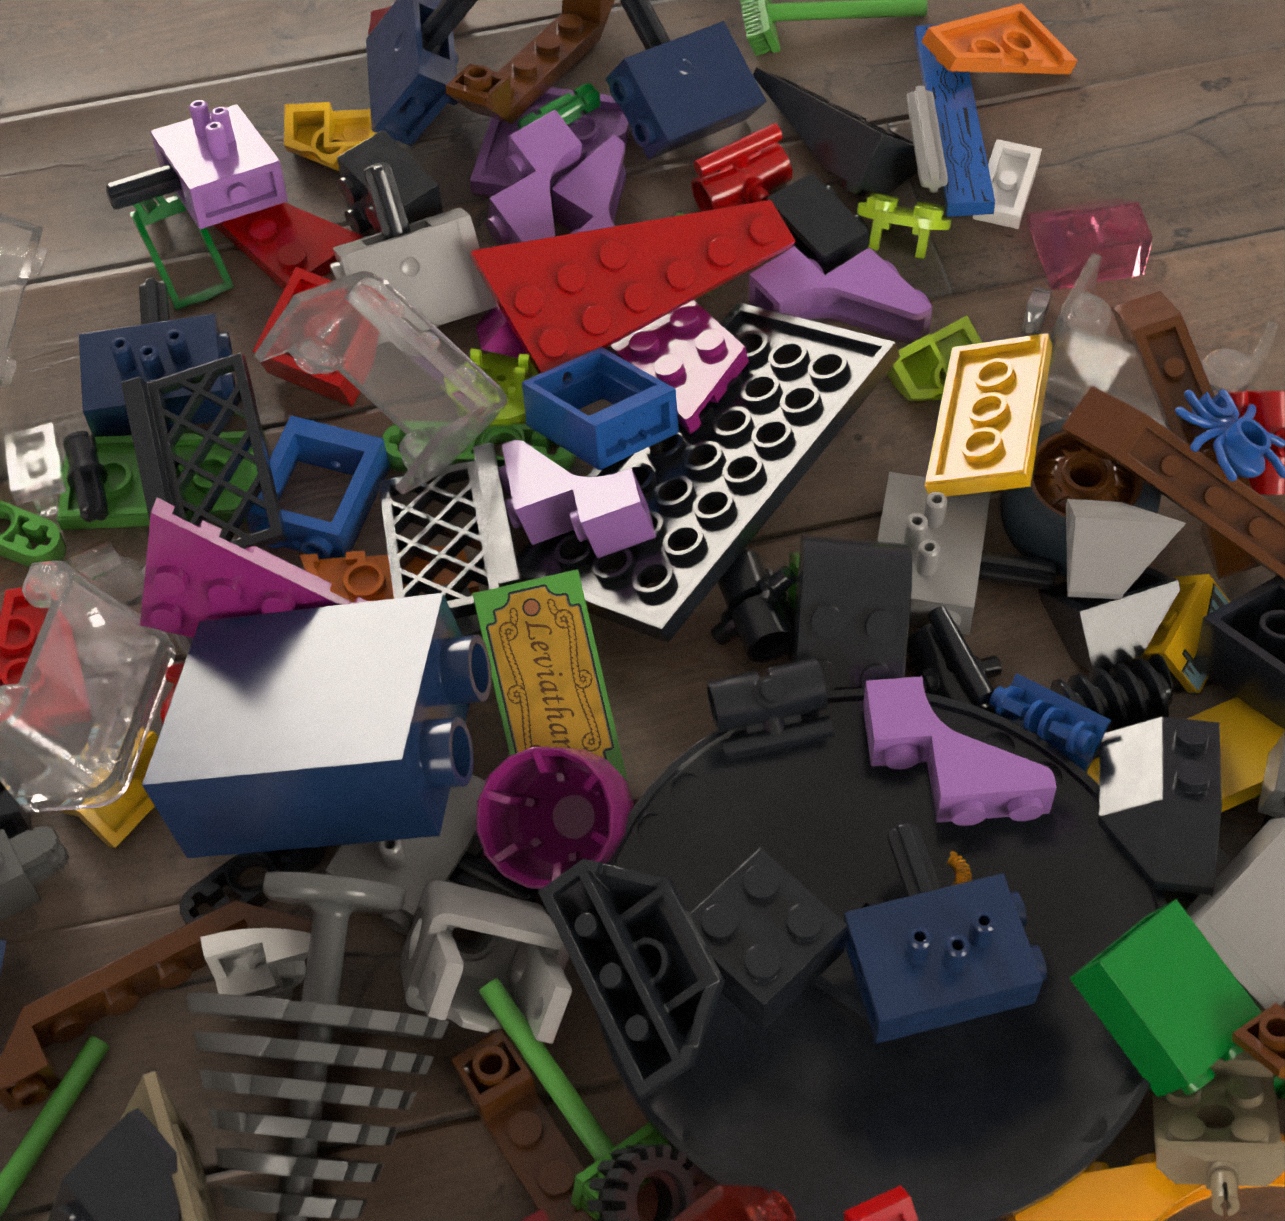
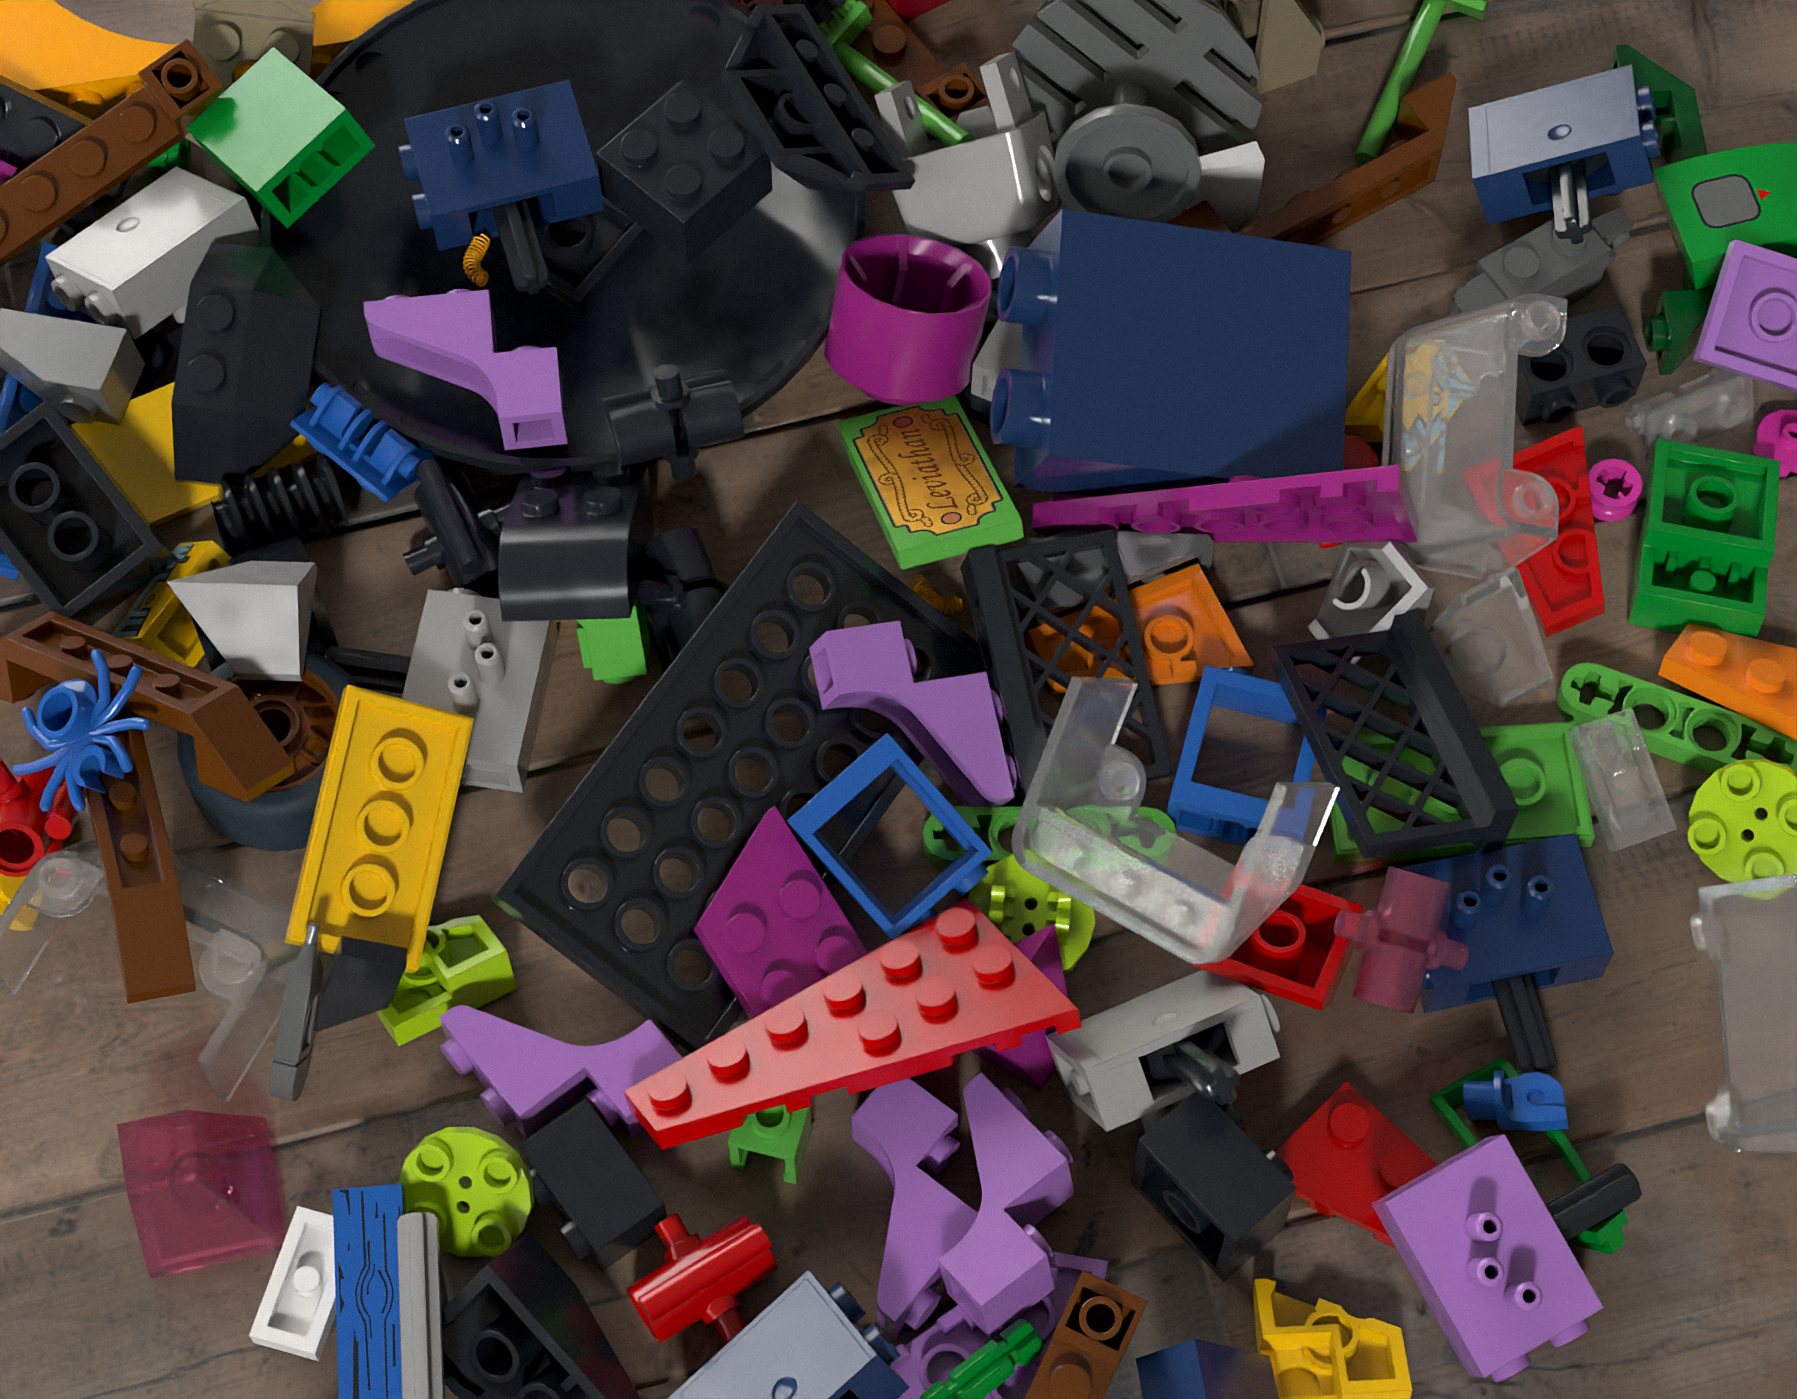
camera: 175 degrees right, 5 degrees up
(86, 475) = (1545, 752): black axle -> none
(173, 264) = (1519, 1103): none -> blue piece
(231, 323) = (1401, 940): none -> clear pink pin
(989, 328) = (359, 980): none -> black tile

